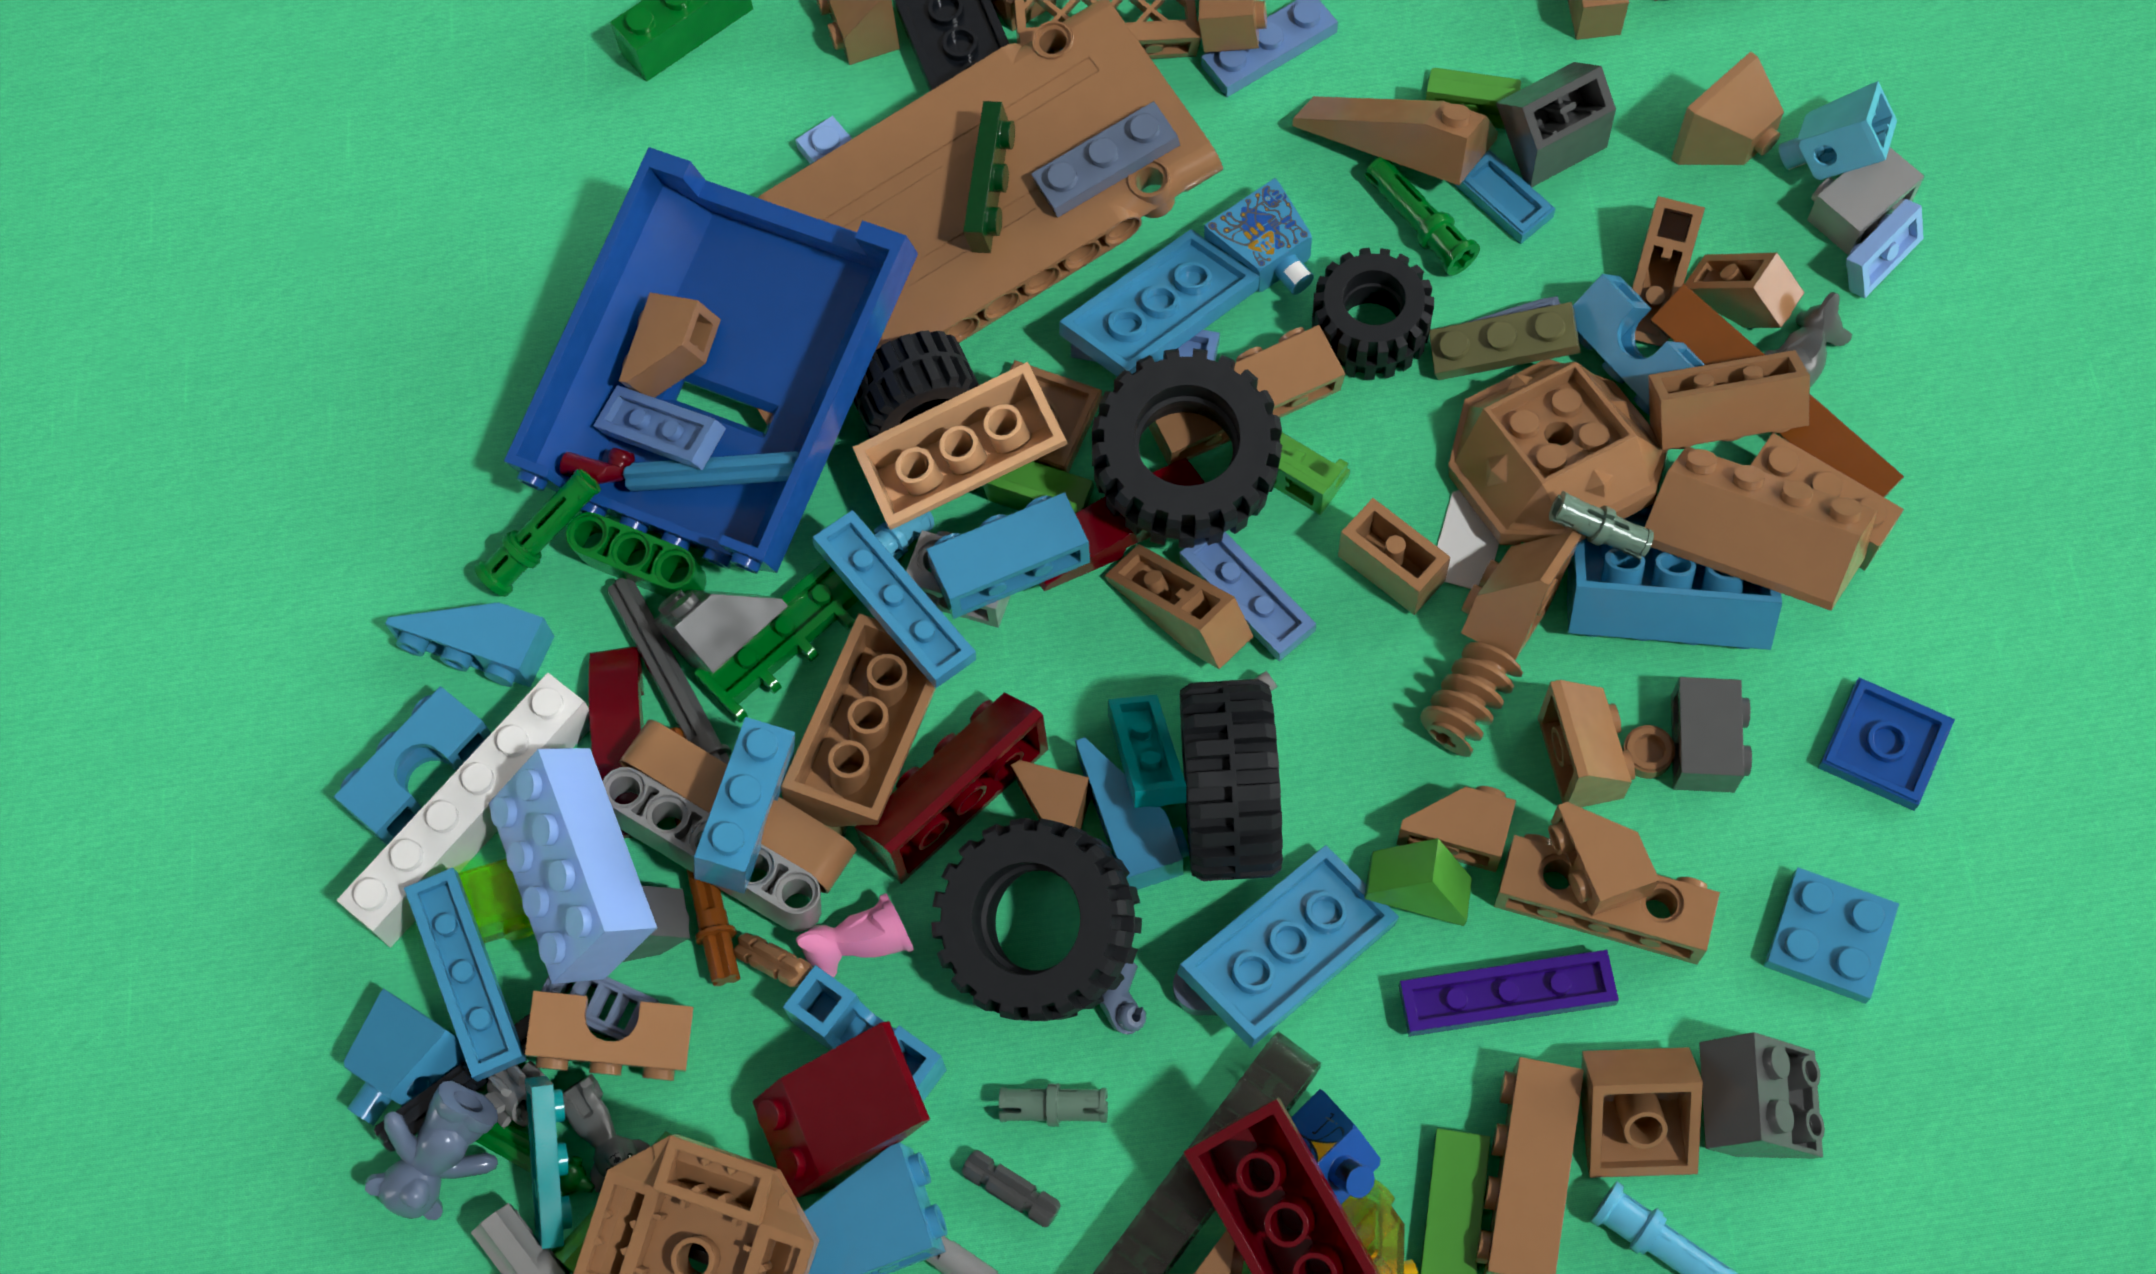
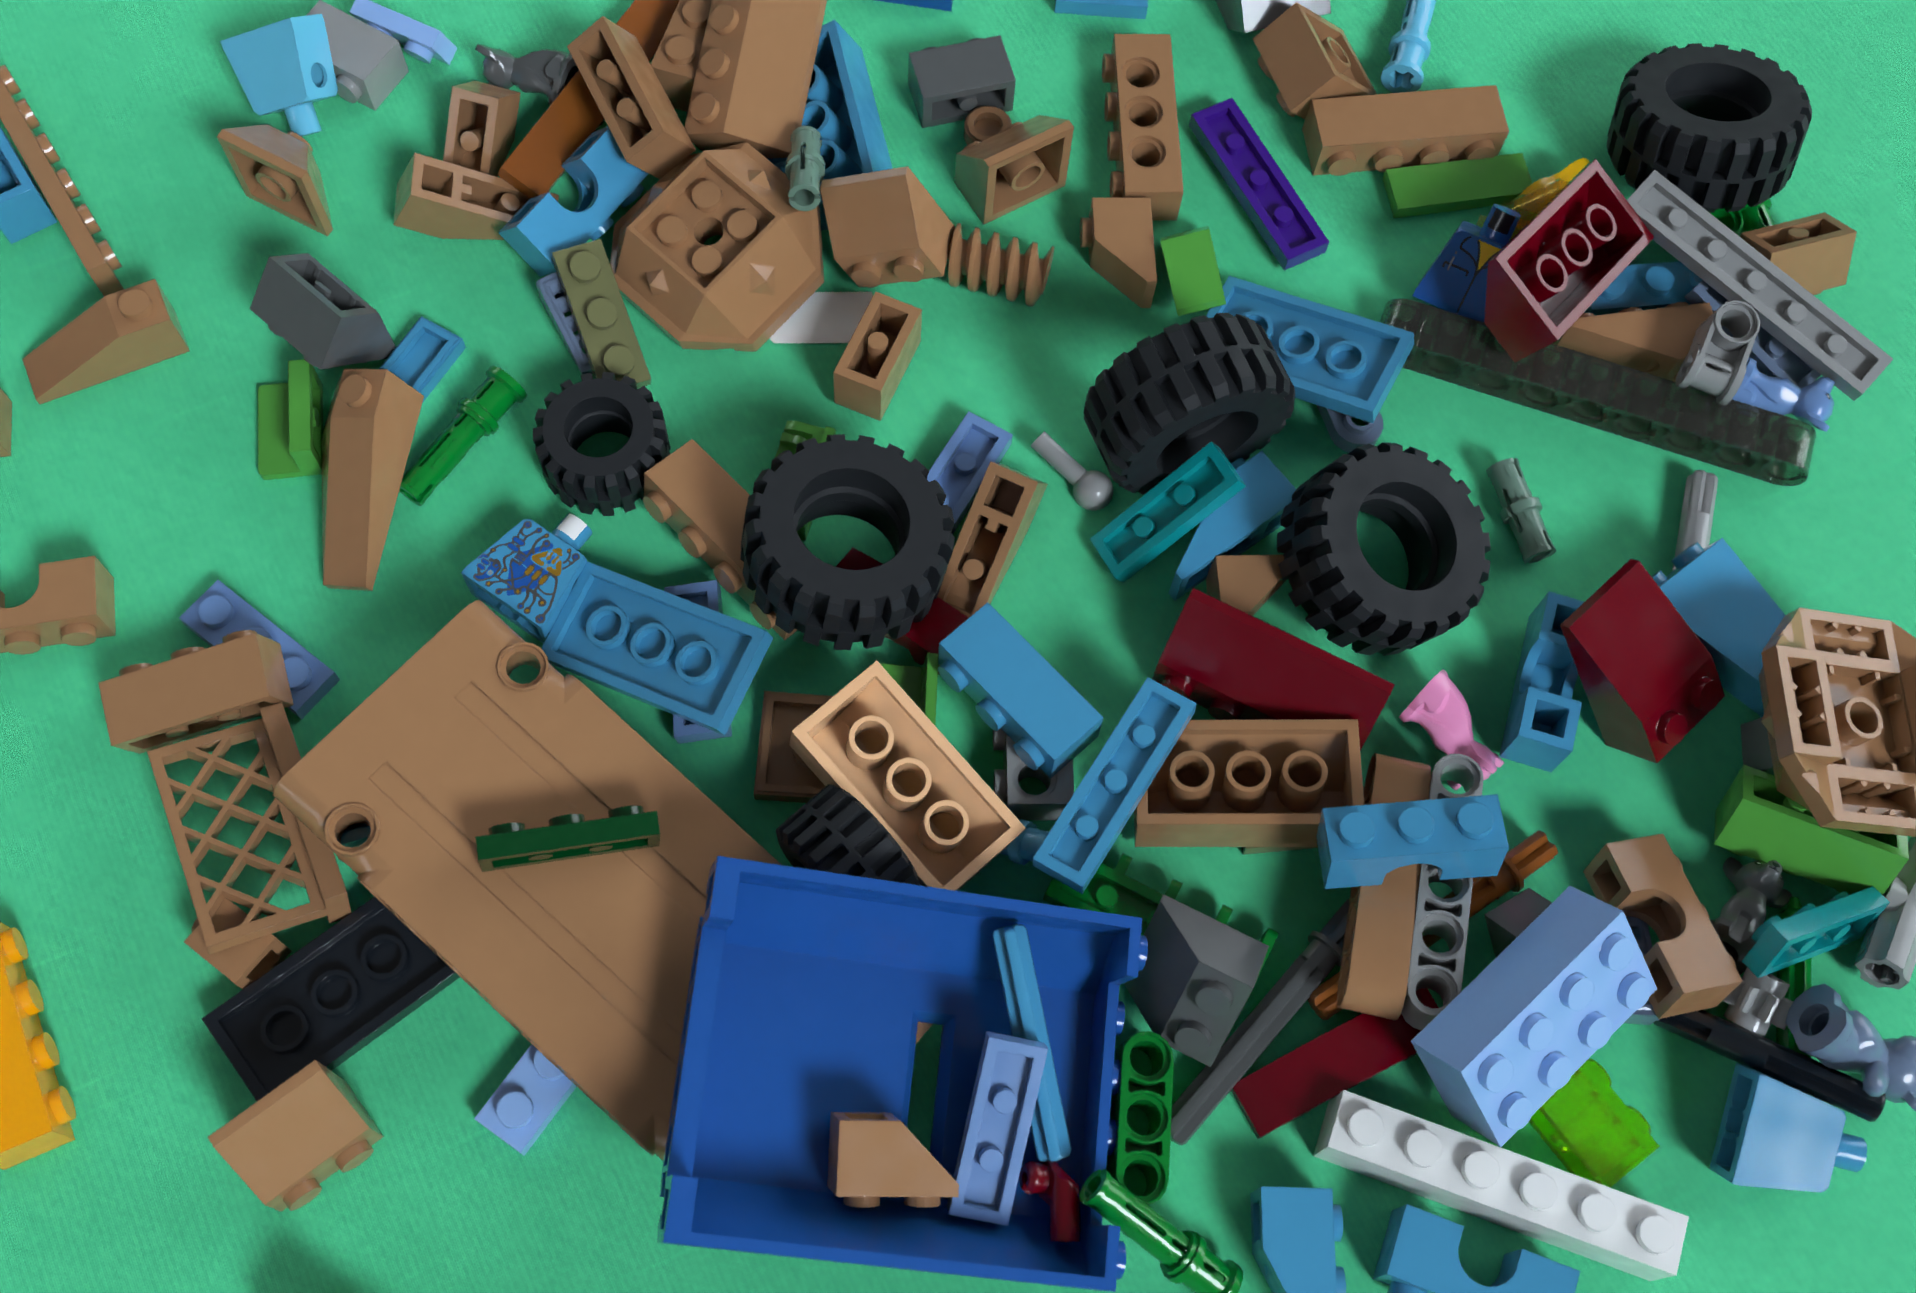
camera: 120 degrees left, 0 degrees up
(465, 974) = (1687, 1089): dark azure plate -> none
(772, 960) = (1518, 788): medium nougat axle -> none
(1011, 1188) = (1607, 526): dark grey axle -> none
(1105, 159) = (511, 716): sand blue plate -> none
(1605, 858) = (1135, 104): medium nougat slope -> none

